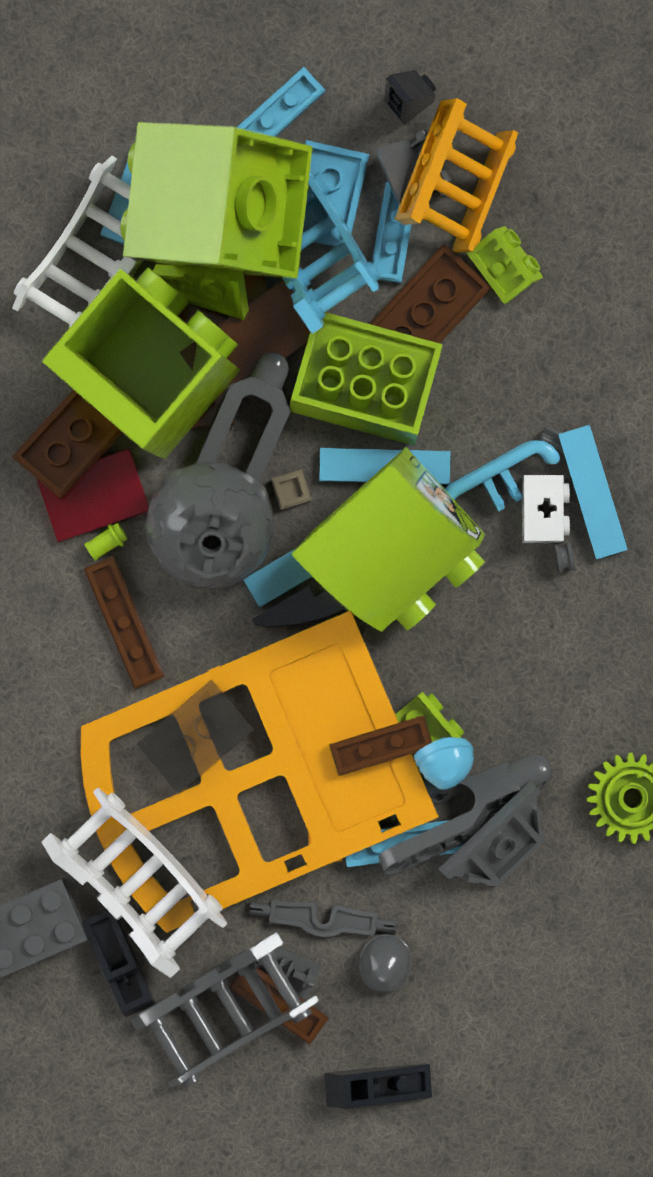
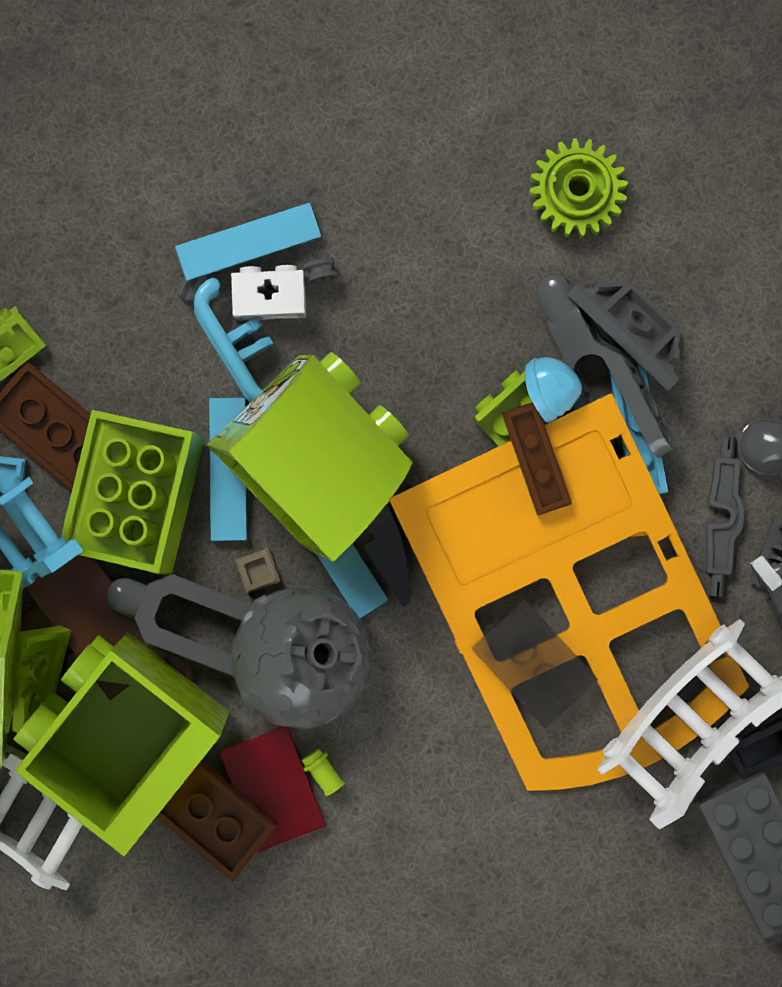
camera: 85 degrees left, 0 degrees up
(124, 622) = (410, 748): reddish brown tile -> none

